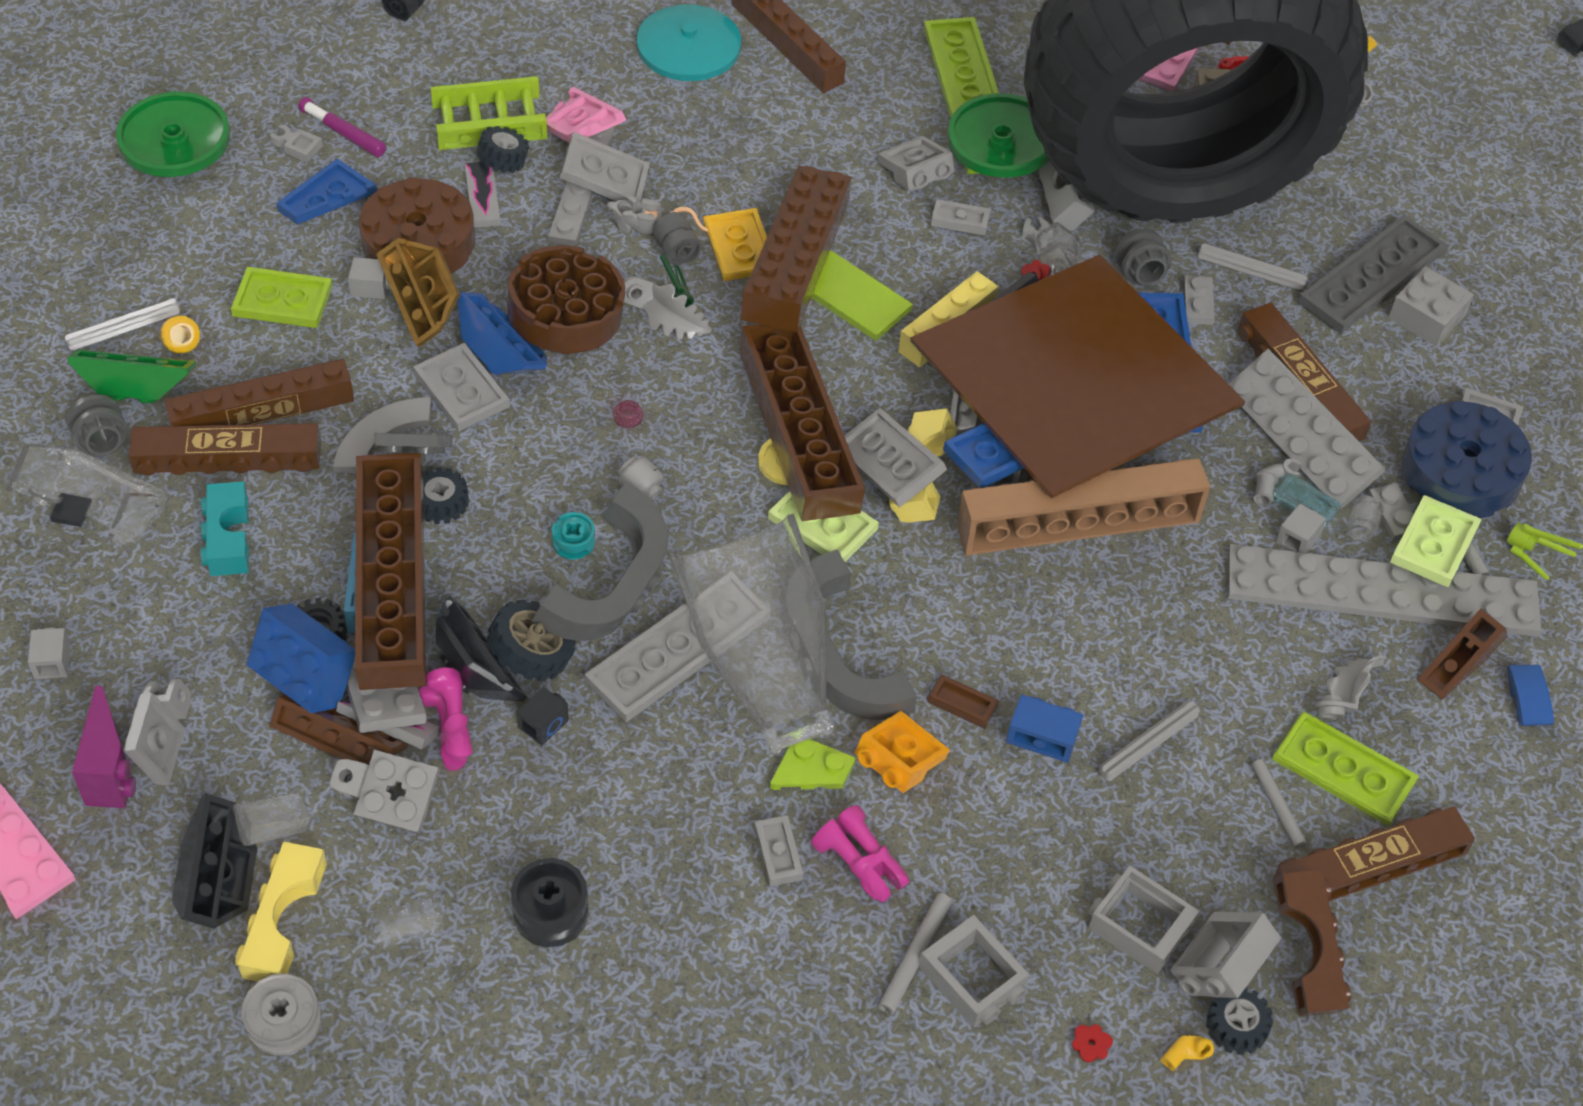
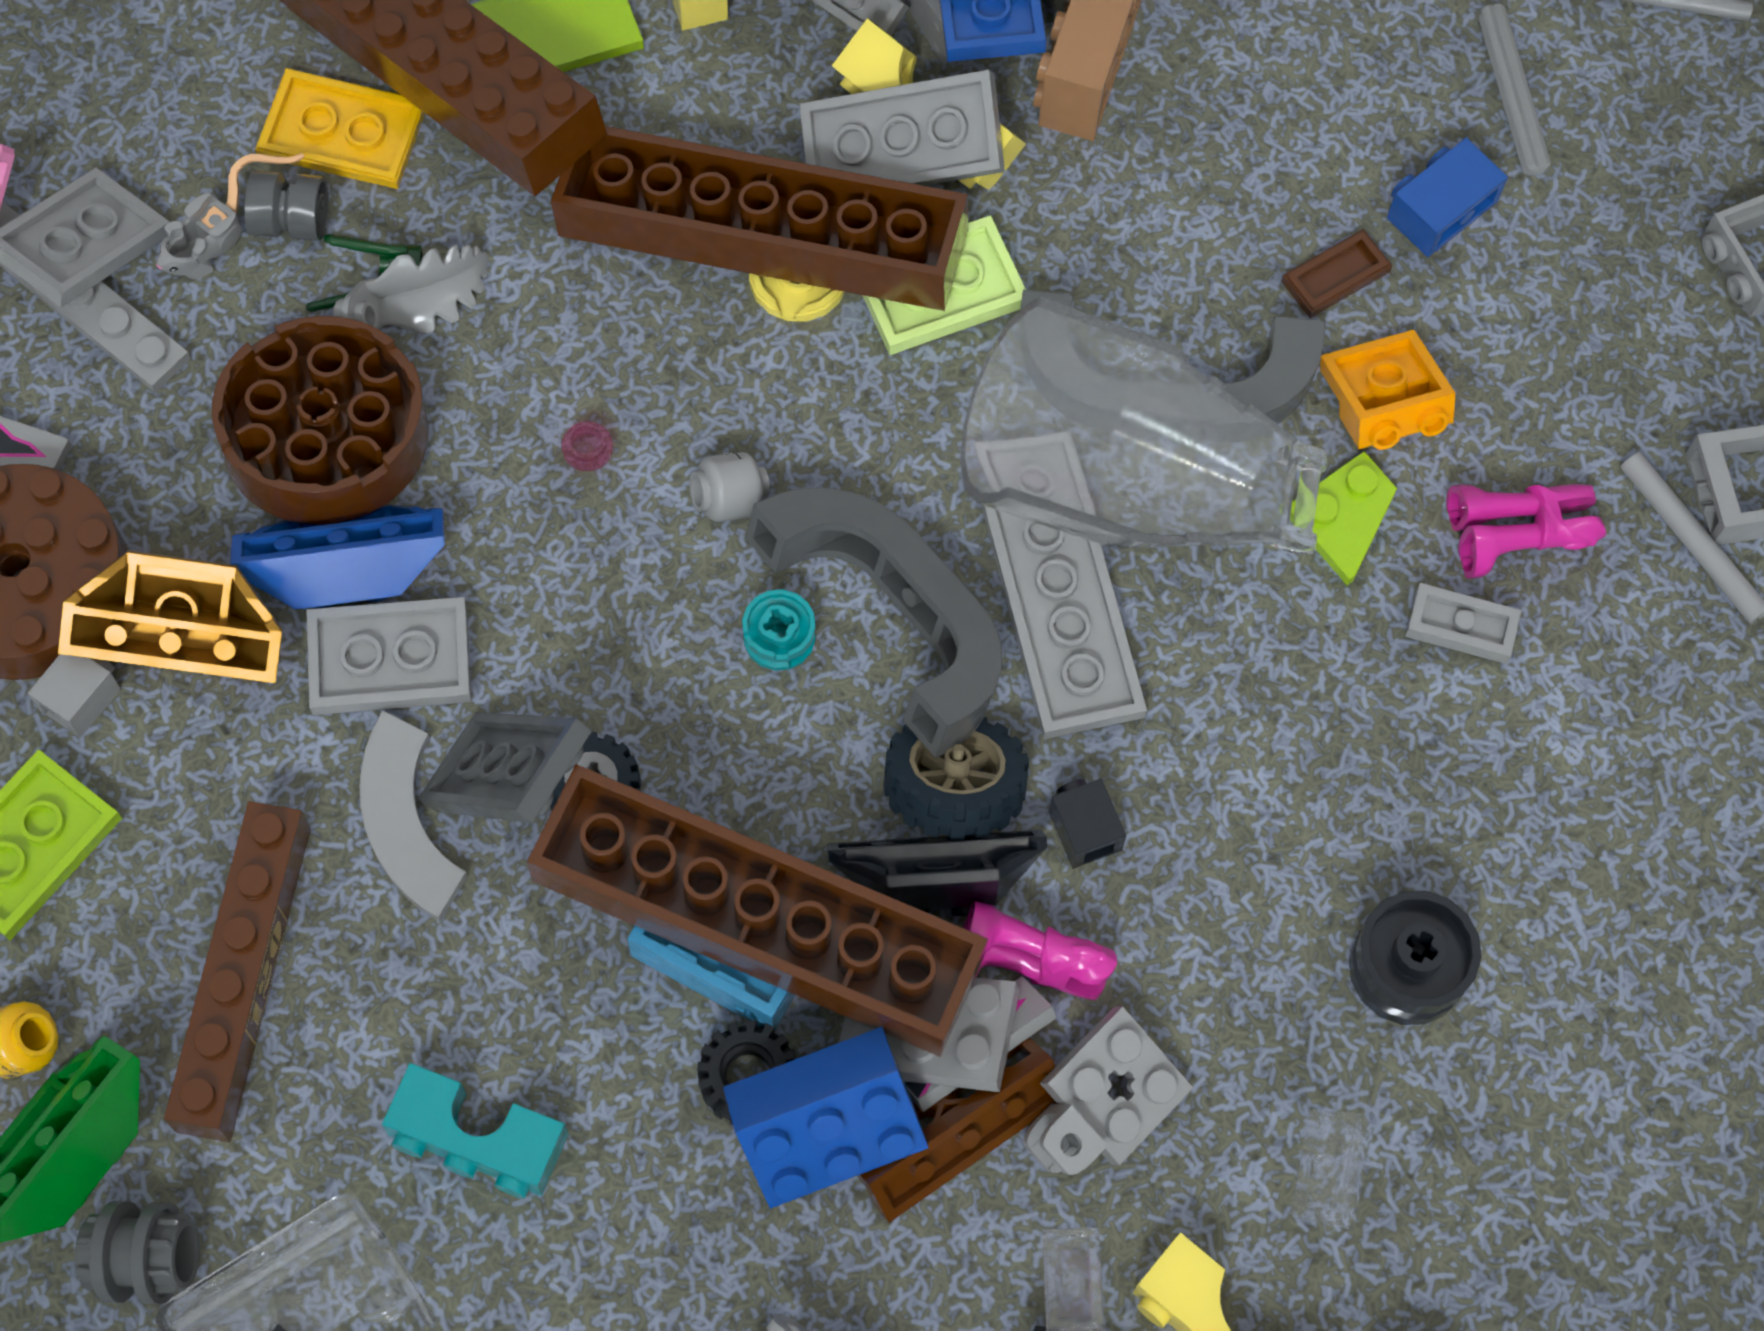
camera: 60 degrees left, 15 degrees up
(225, 448) = (304, 1068): reddish brown brick -> none

